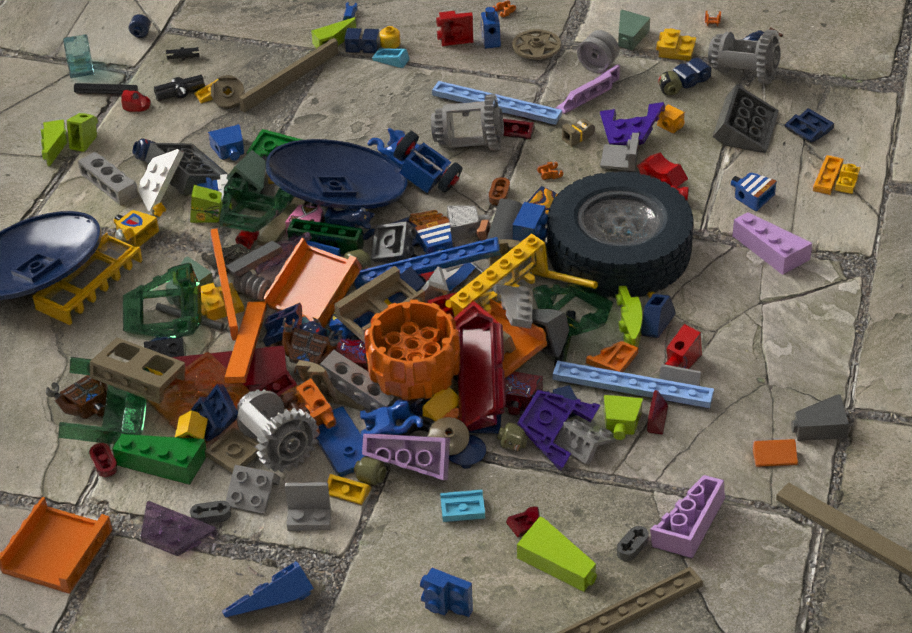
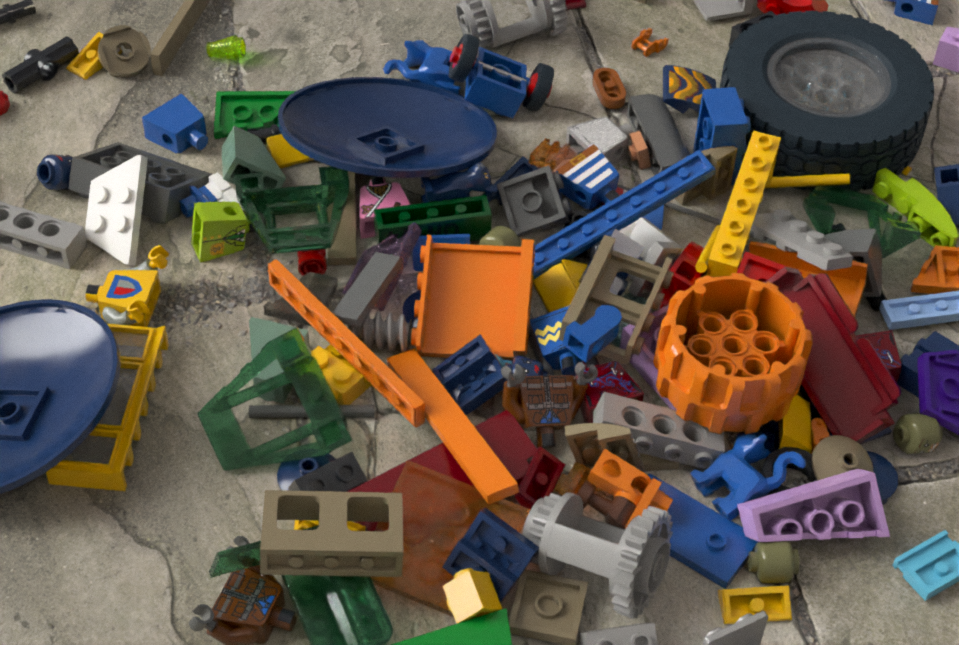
camera: 30 degrees left, 5 degrees up
(290, 106) = (227, 48): none -> clear neon green cone
(350, 317) = (594, 334): none -> blue leg

